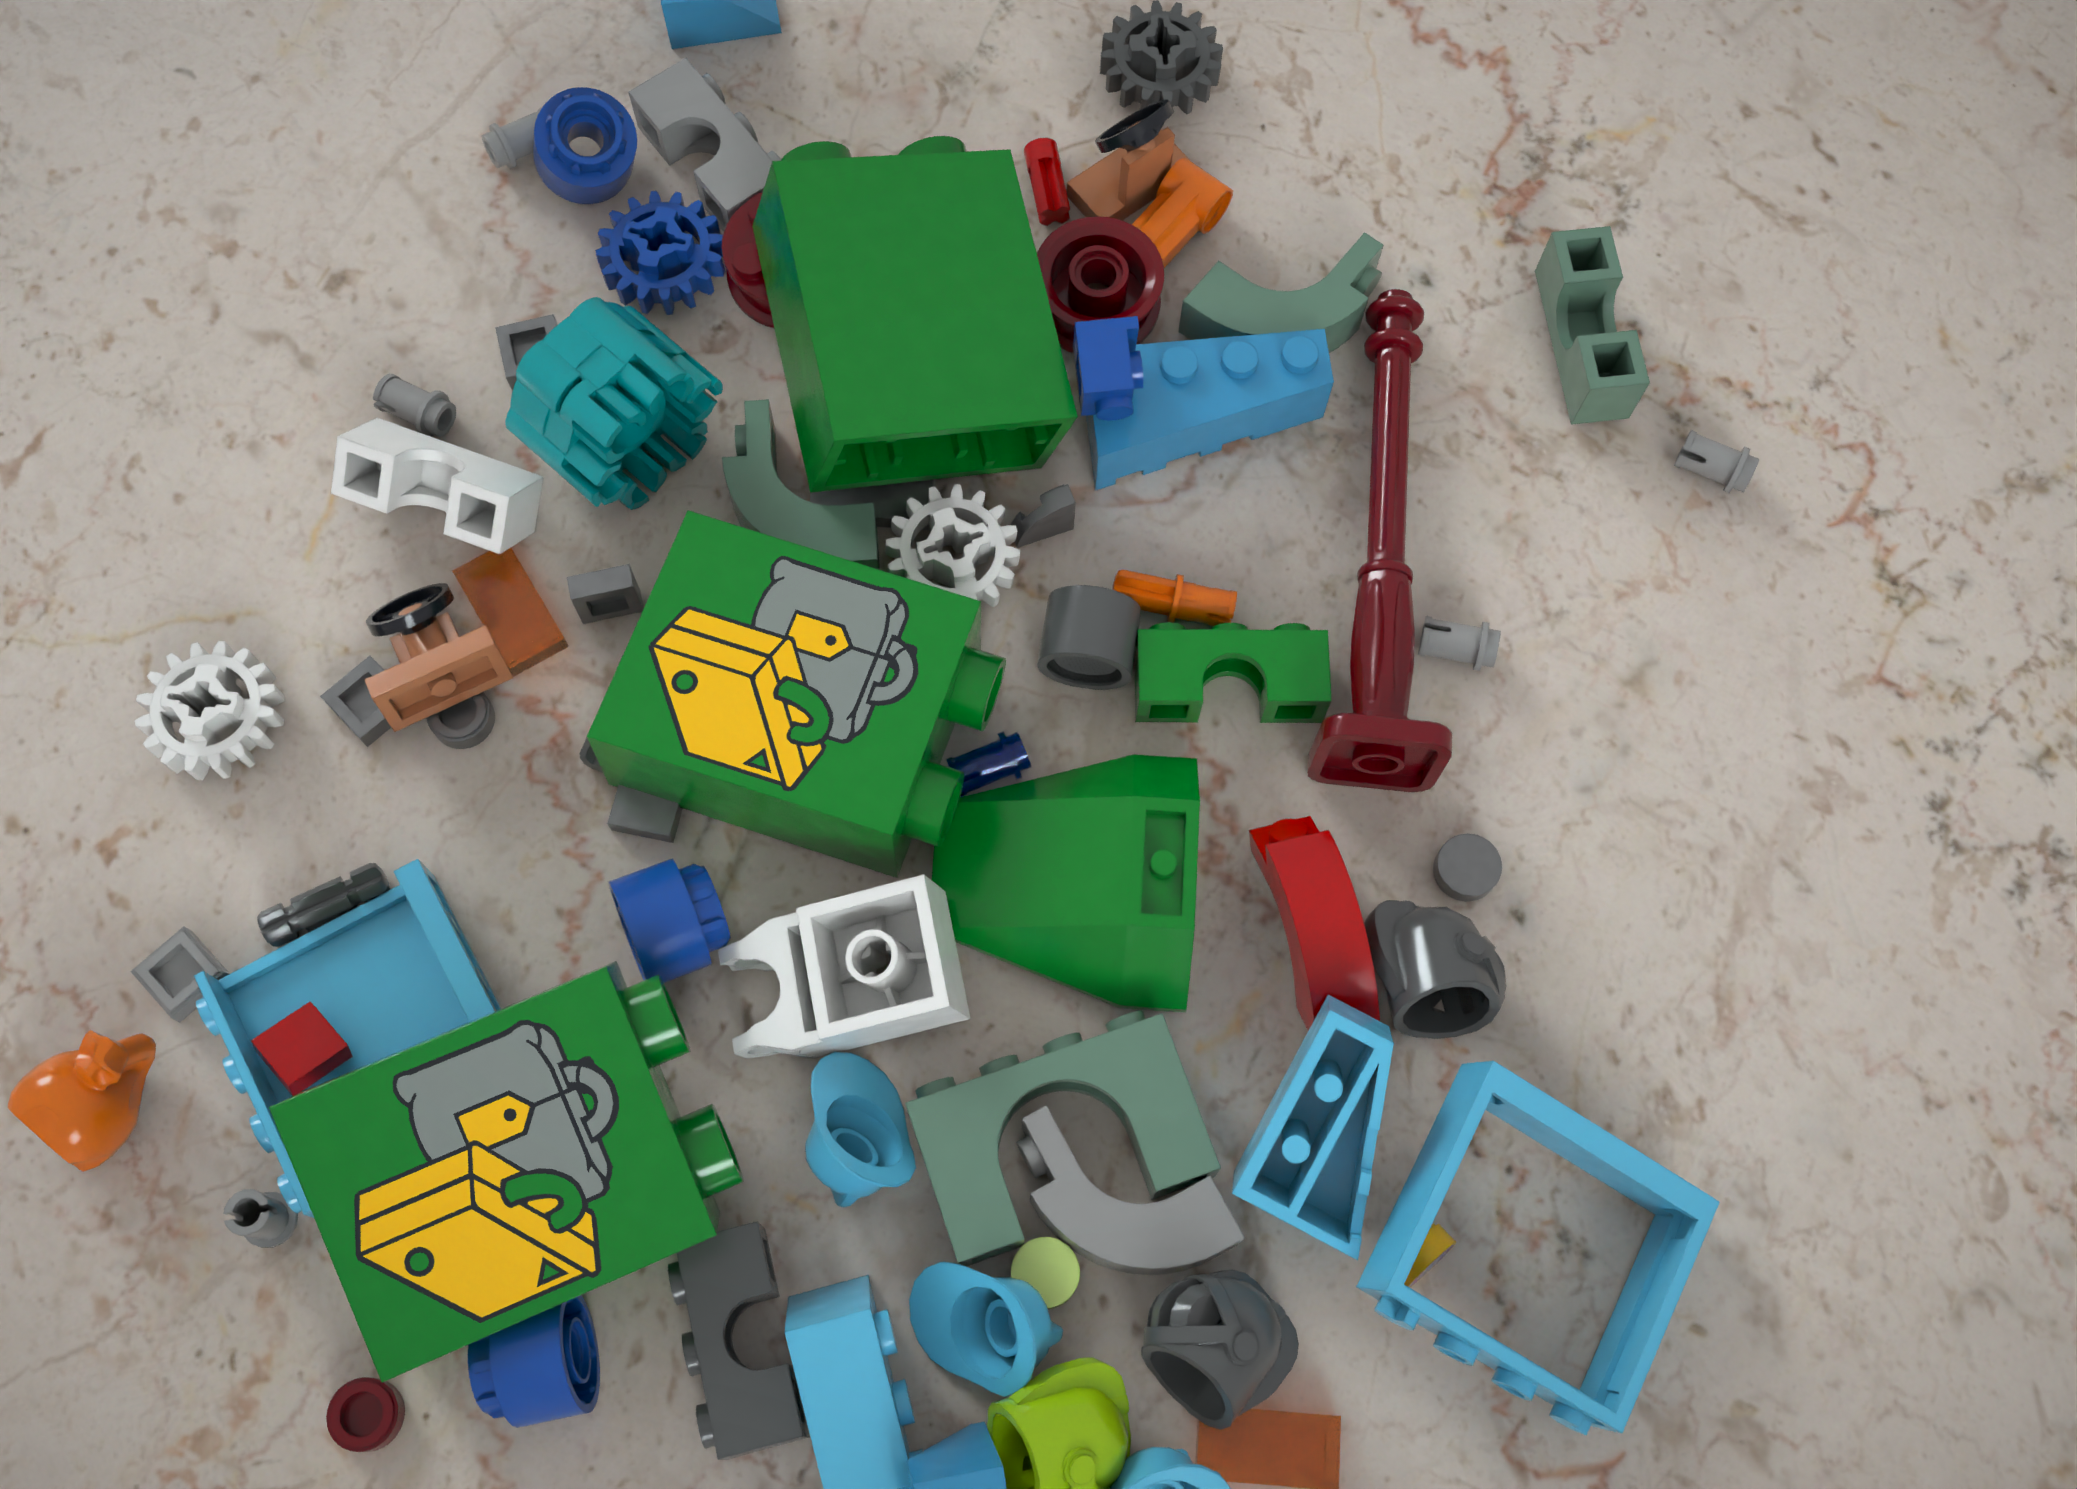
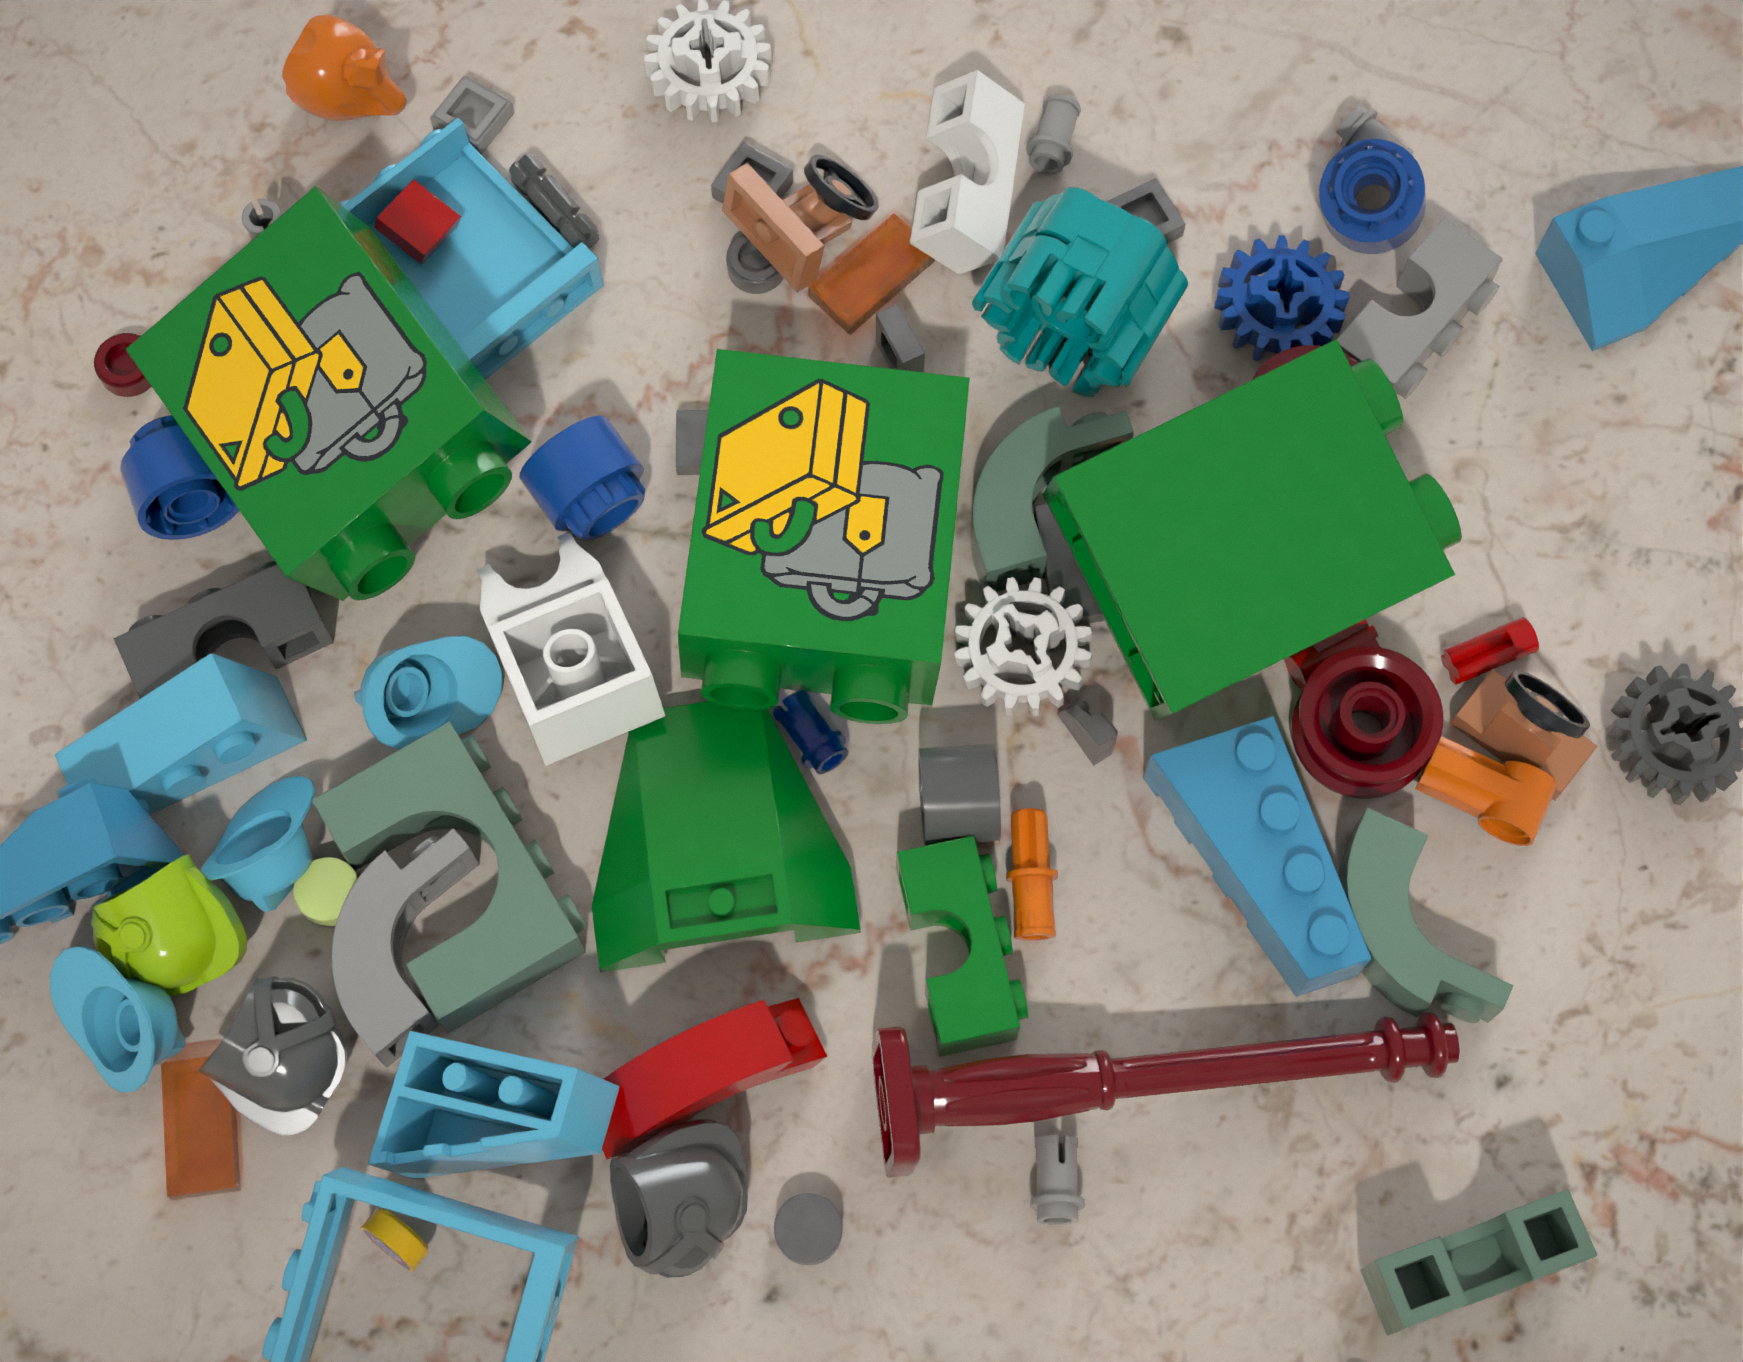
camera: 80 degrees right, 0 degrees up
(1107, 366) = (1237, 731): blue brick -> none

